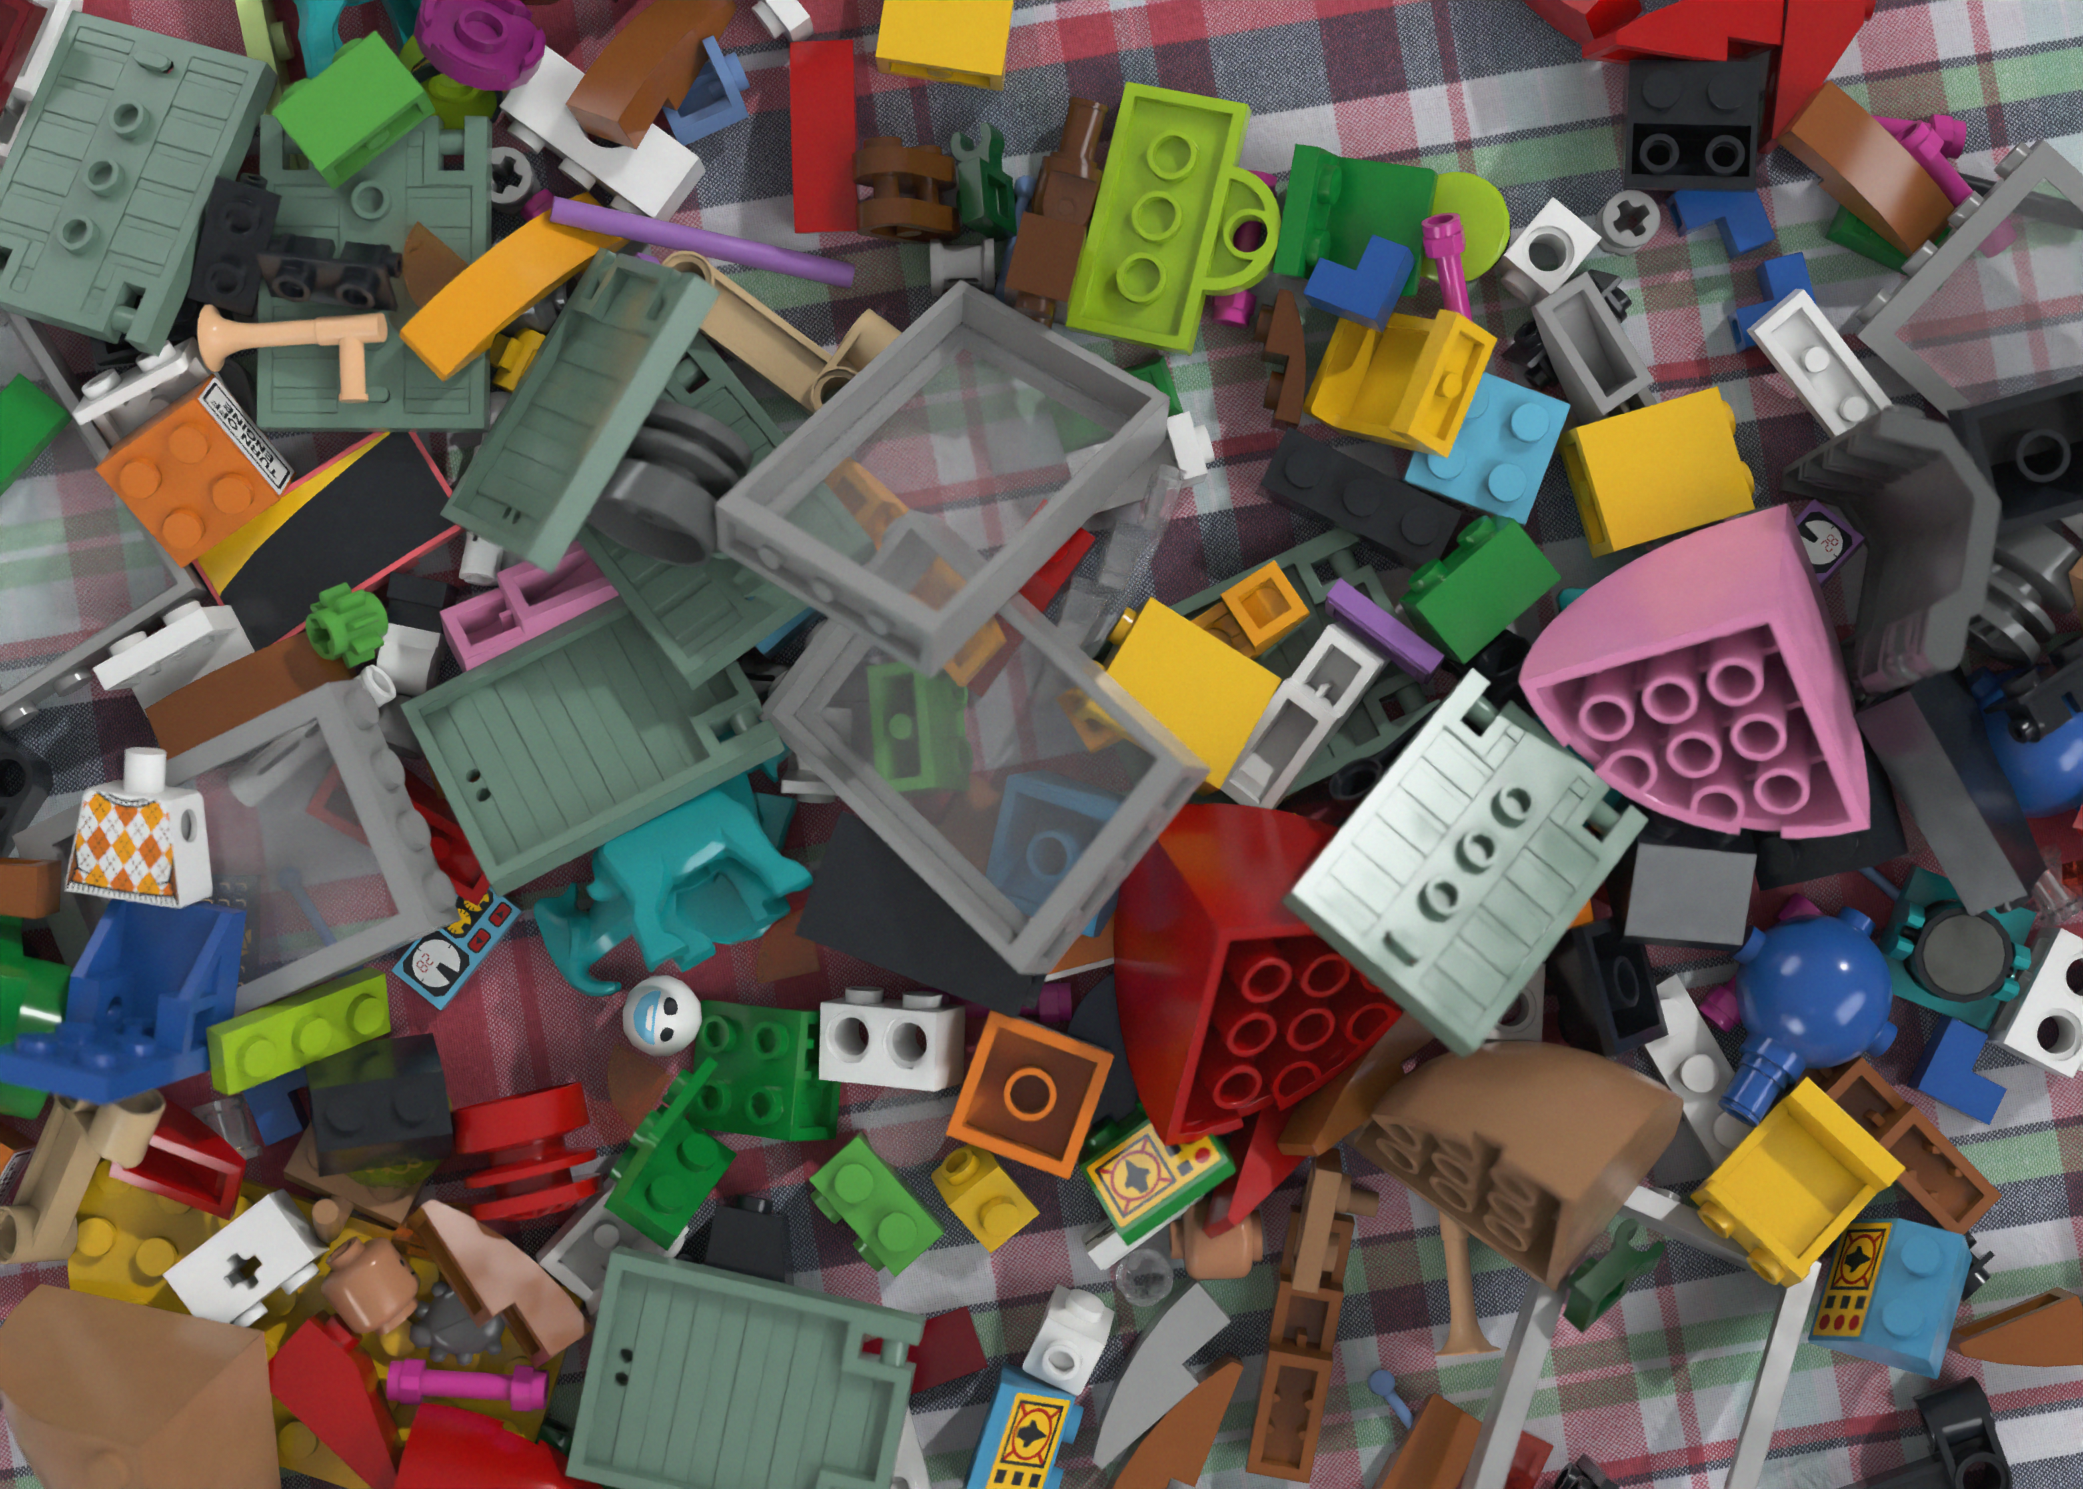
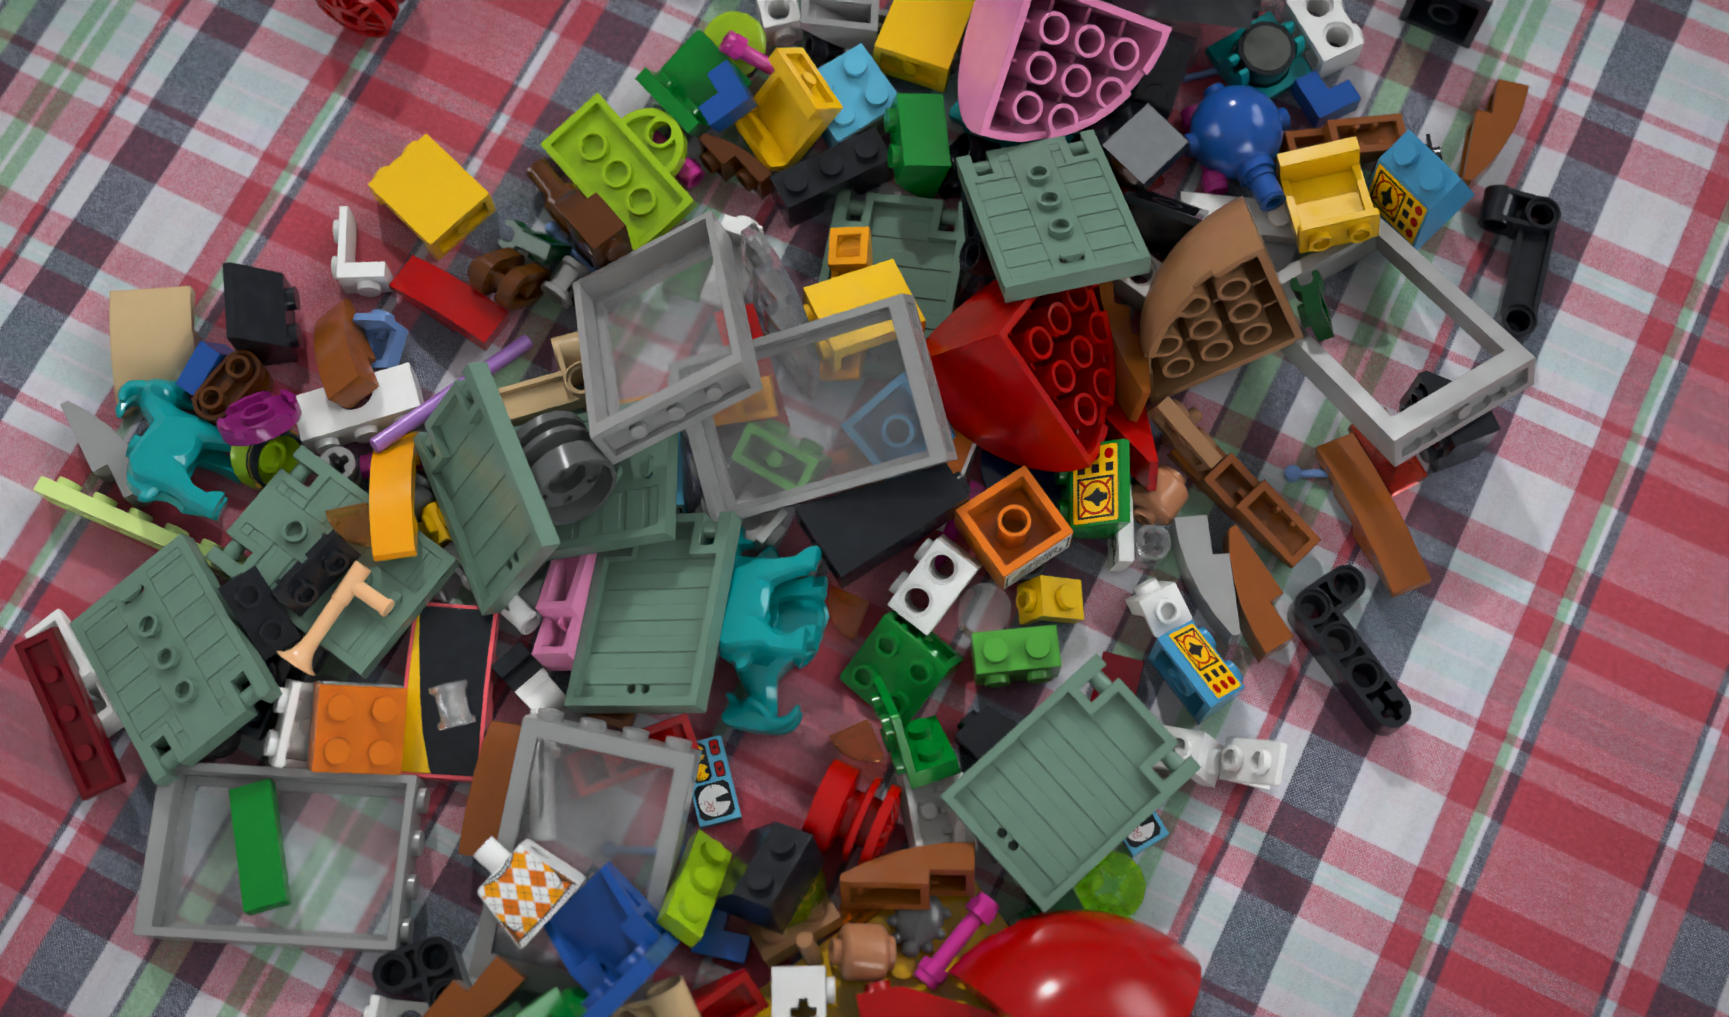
camera: 50 degrees left, 15 degrees down
(177, 655) = (442, 816): white bracket -> none
(304, 567) = (452, 705): none -> clear bush
(347, 625) = (500, 704): bright green gear -> none
(353, 109) = (242, 498): bright green brick -> none
(661, 1016) = (832, 697): white piece -> none
(1304, 716) = (920, 264): white slope -> none
(1383, 632) = (906, 200): medium lavender tile -> none
(1464, 1333) = (1295, 411): light nougat piece -> none

